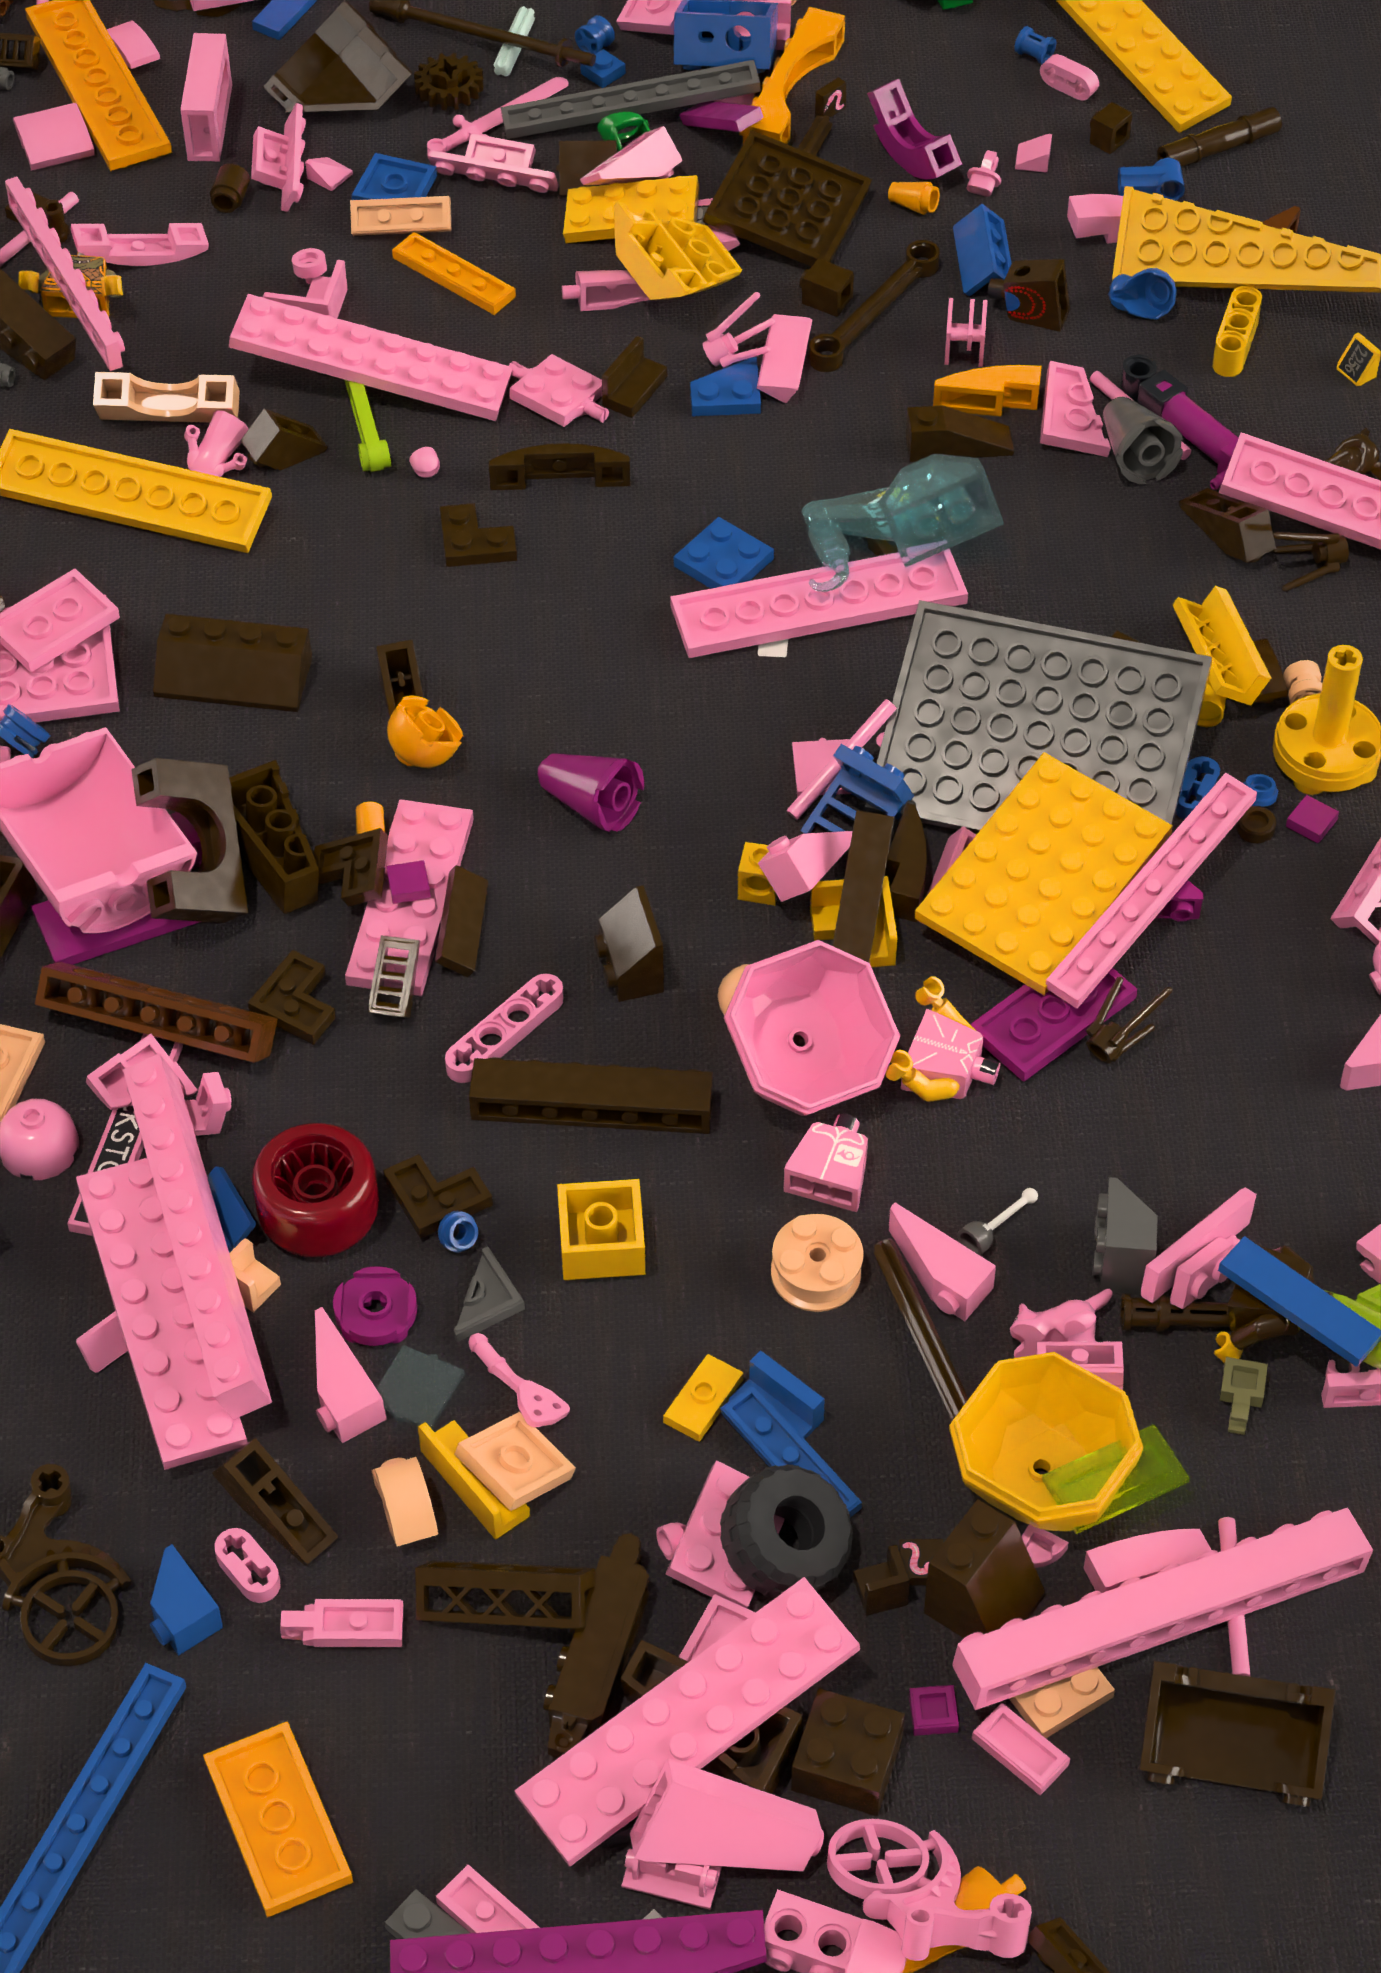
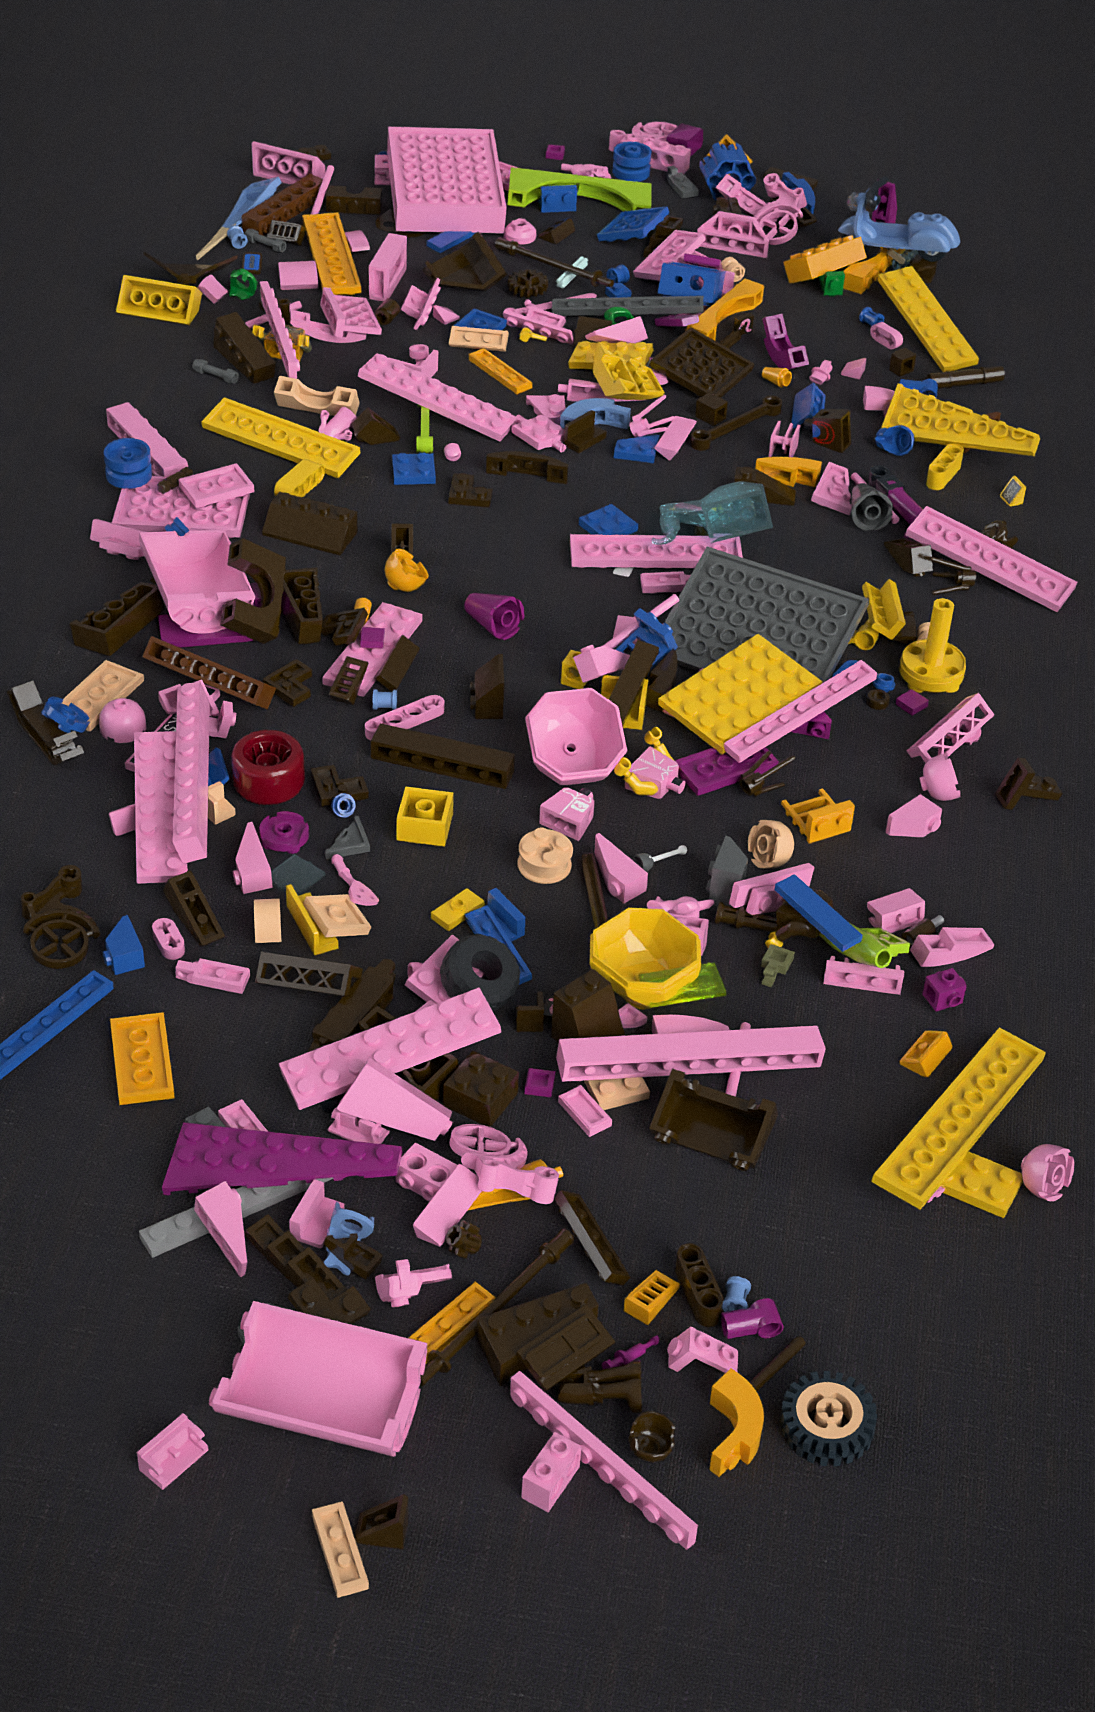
camera: 10 degrees right, 10 degrees down
(146, 211) = (348, 314): none -> bright pink fence
(186, 574) = (301, 478): none -> yellow beam
(369, 508) = (413, 469): none -> blue plate
(463, 1000) = (384, 699): none -> medium blue bush
(477, 187) = (526, 333): none -> yellow hand
(558, 334) = (548, 406): none -> bright pink wing
(647, 322) = (604, 410): none -> medium blue arch
(856, 659) = (663, 582): none -> bright pink hinge
(1172, 1161) = (771, 844): none -> light nougat cylinder
(1242, 1098) = (823, 821): none -> light orange plate

